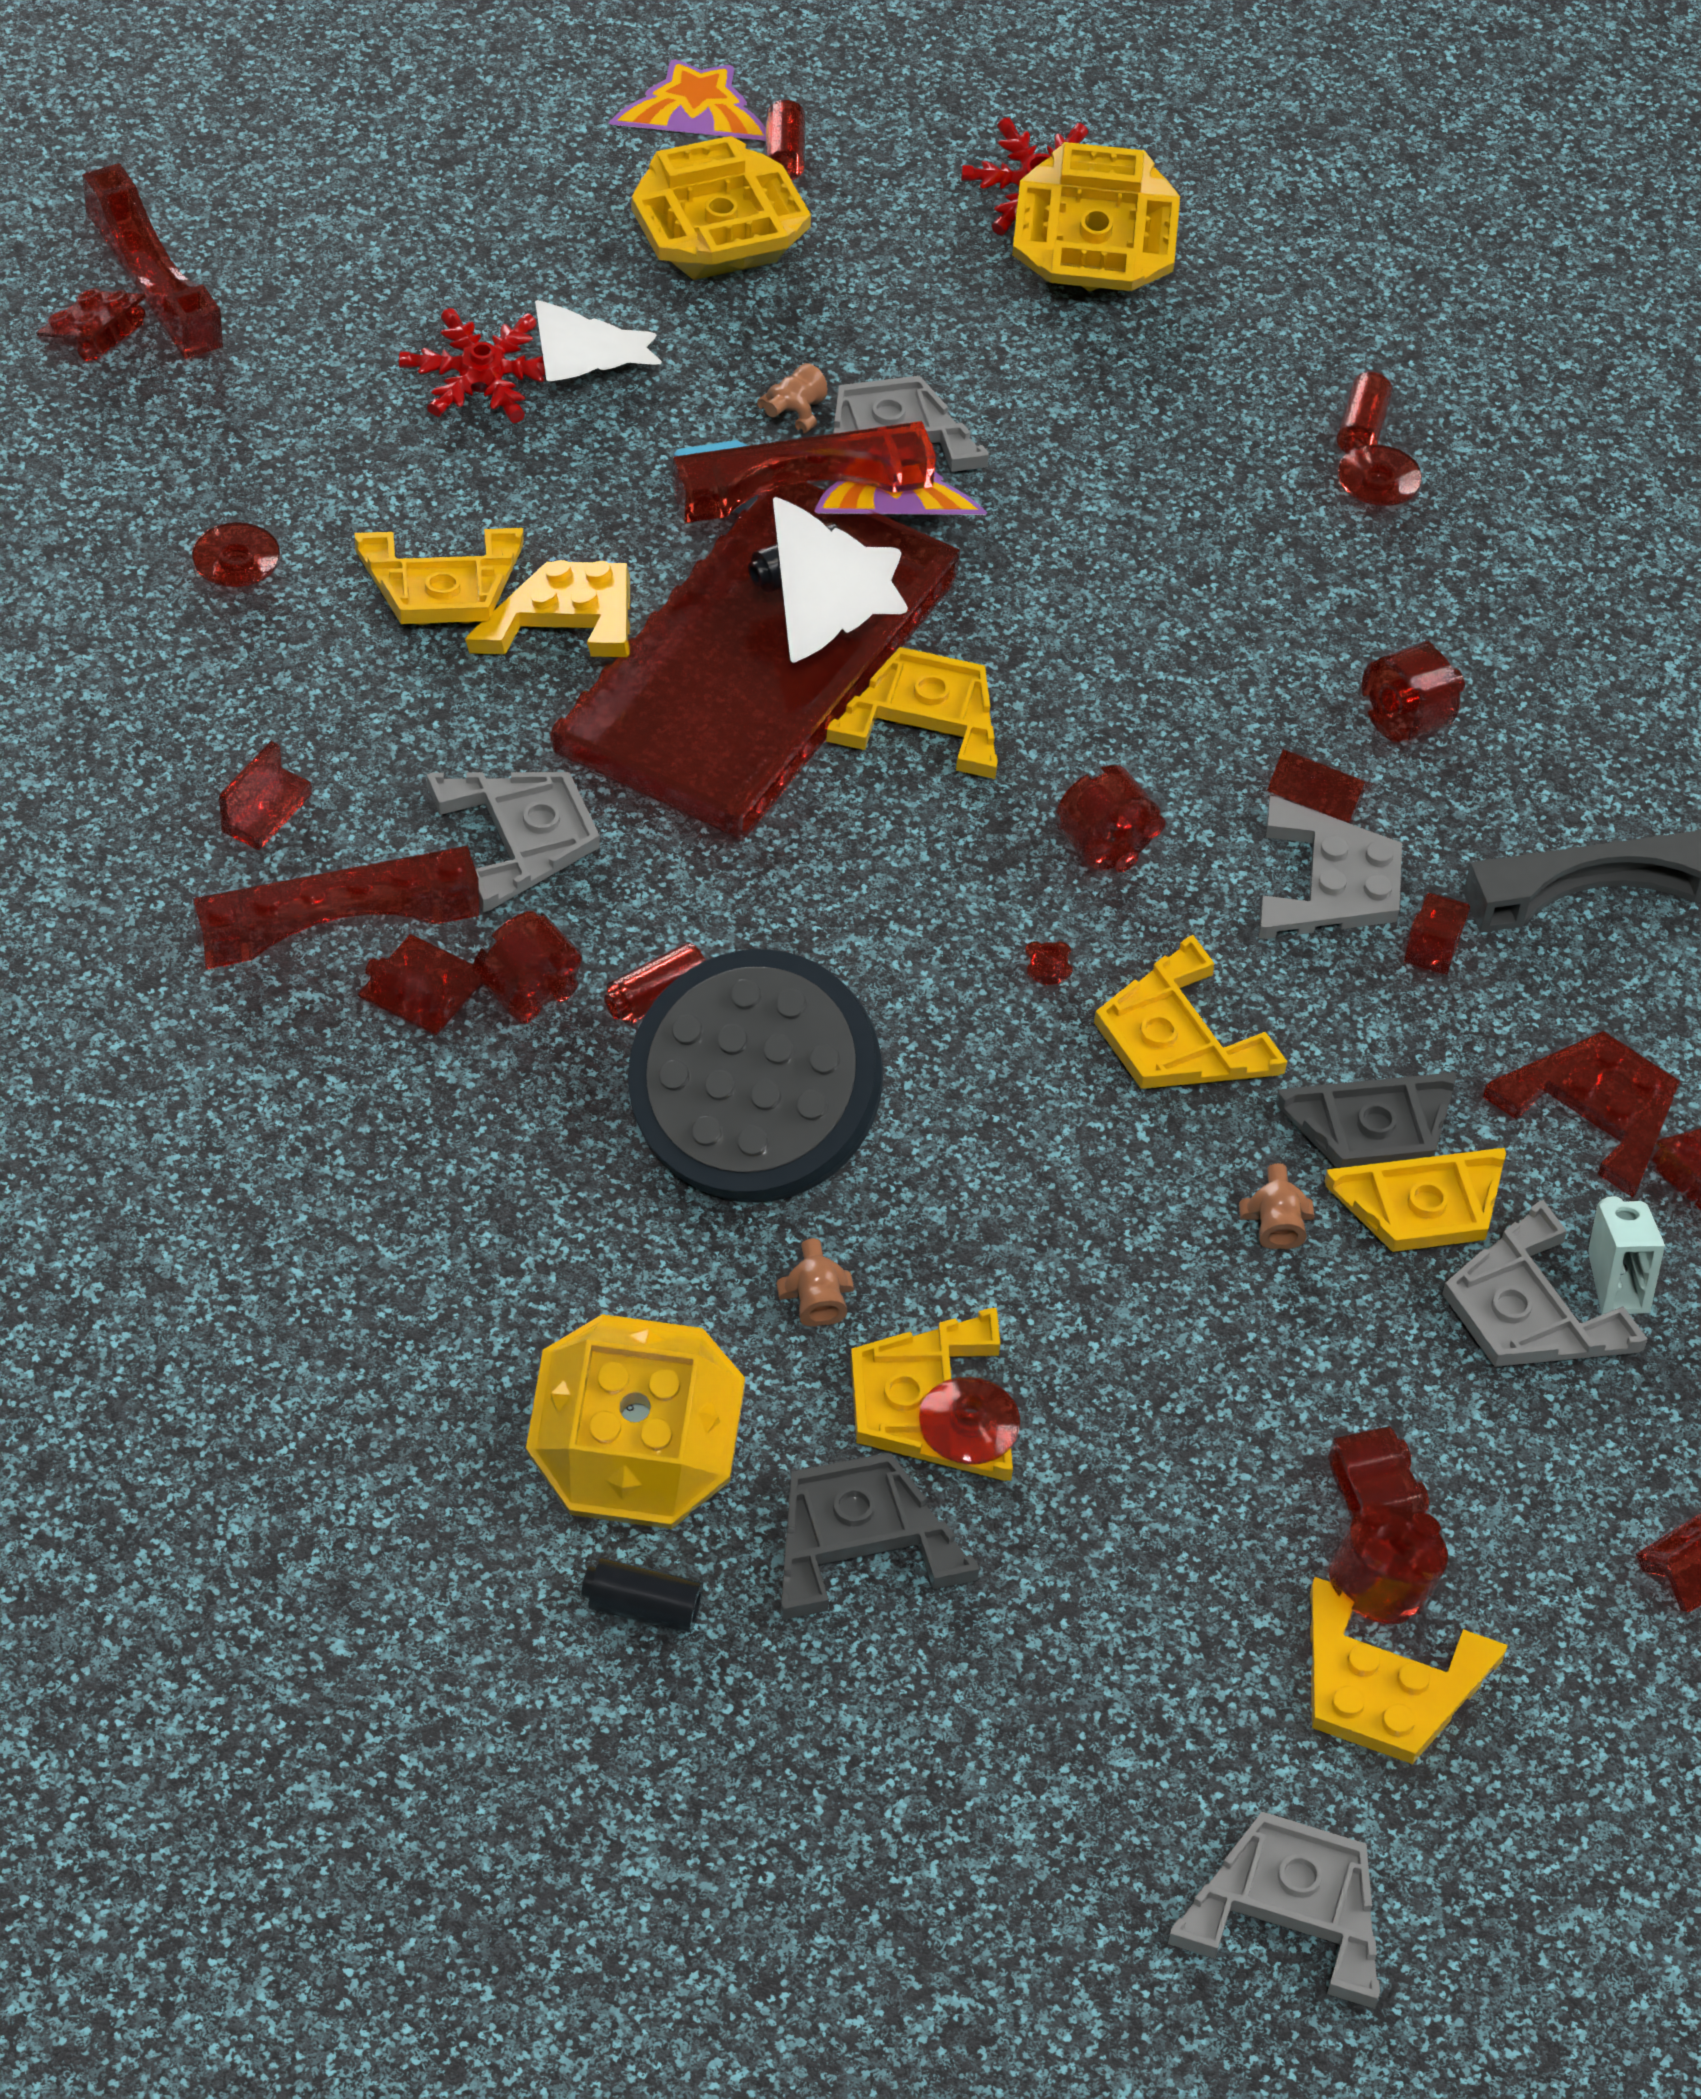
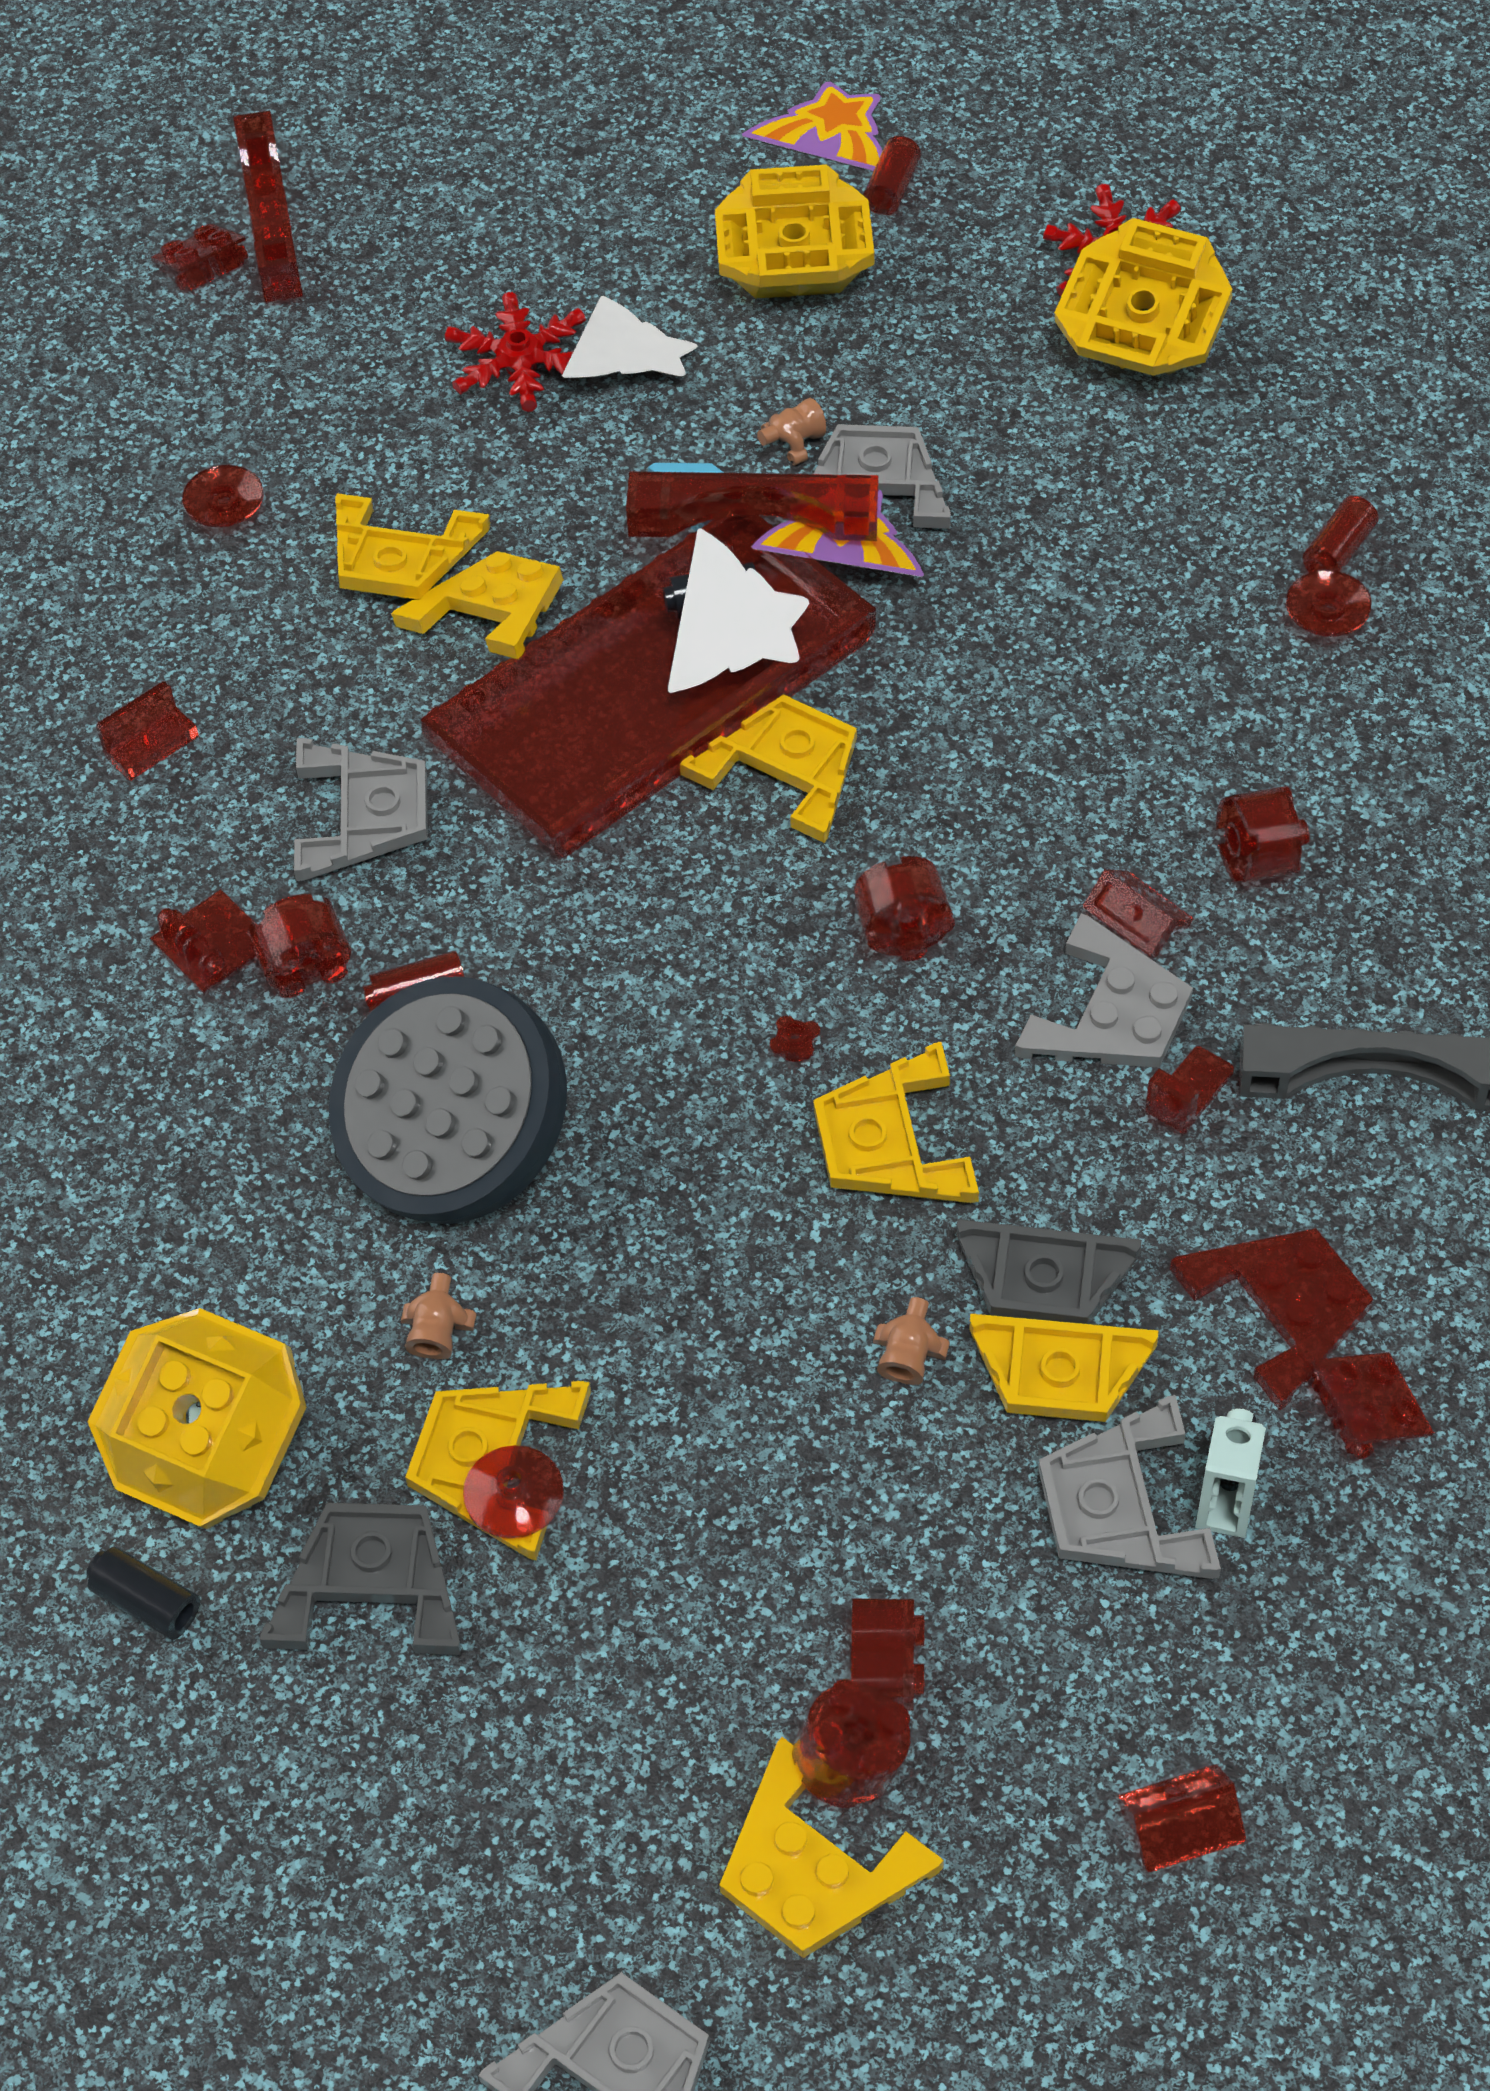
camera: 25 degrees right, 5 degrees up
(249, 920) = (78, 849): clear red arch -> none

